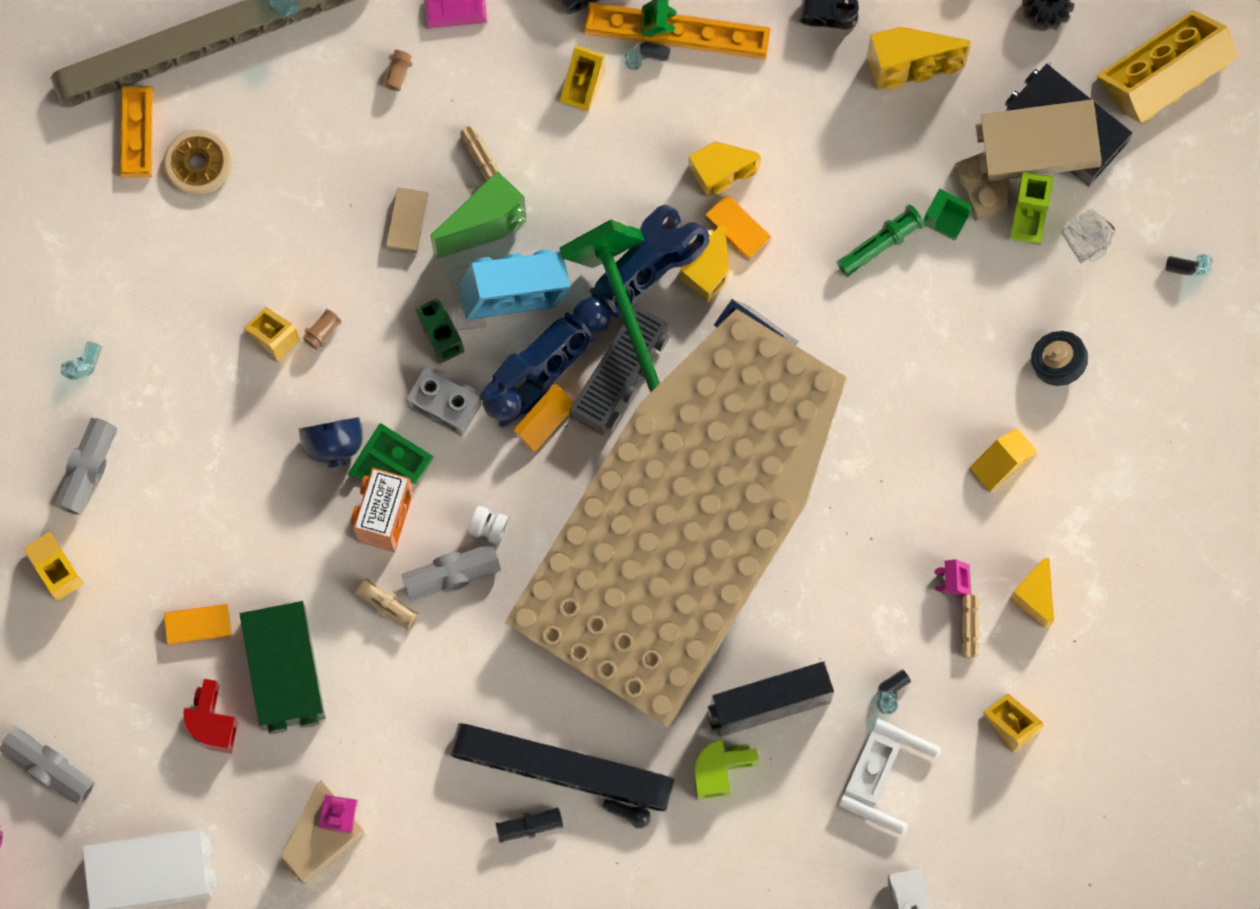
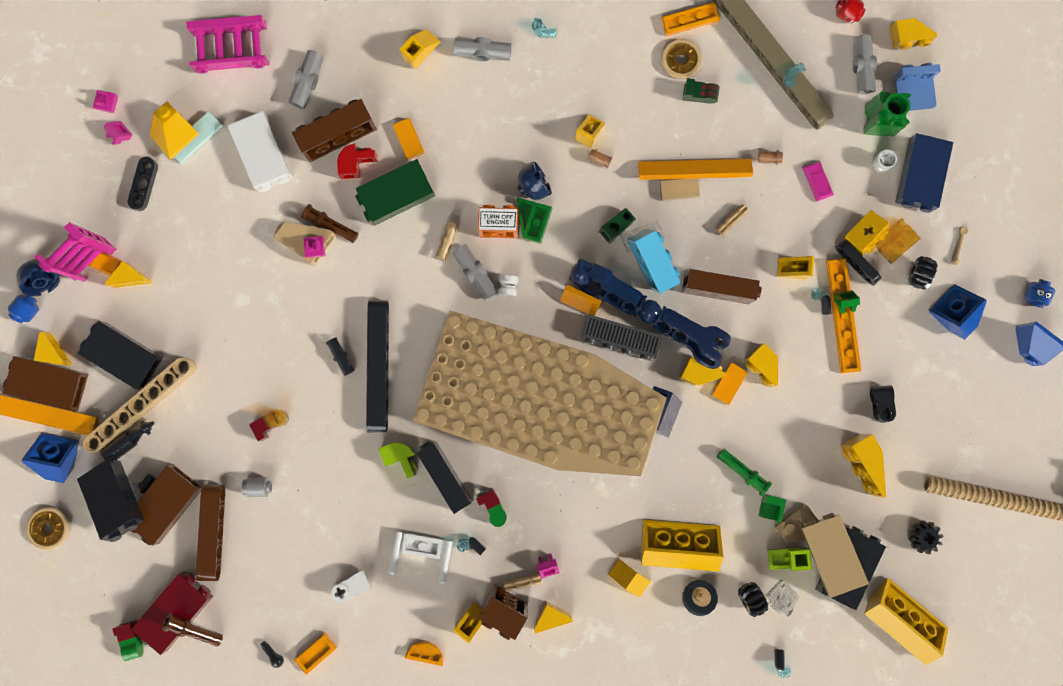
camera: 75 degrees right, 10 degrees up
(152, 734) = (334, 130): none -> reddish brown brick
(261, 147) = (700, 92): none -> dark green leg
(293, 798) = (322, 220): none -> reddish brown pin
(383, 188) = (695, 169): none -> light orange tile
(444, 401) = (574, 240): light grey brick -> none
(483, 218) = (691, 231): bright green slope -> none
(584, 192) = (721, 286): none -> reddish brown brick
(601, 247) = (690, 305): green tile -> none
(637, 816) = (360, 417): black piece -> none
(840, 637) = (494, 507): none -> leg
(972, 365) = (681, 545): none -> yellow slope
(1006, 652) = (504, 612): none -> reddish brown brick
(1045, 809) = (425, 652): none -> light orange tile
(1080, 278) = (753, 599): none -> black gear

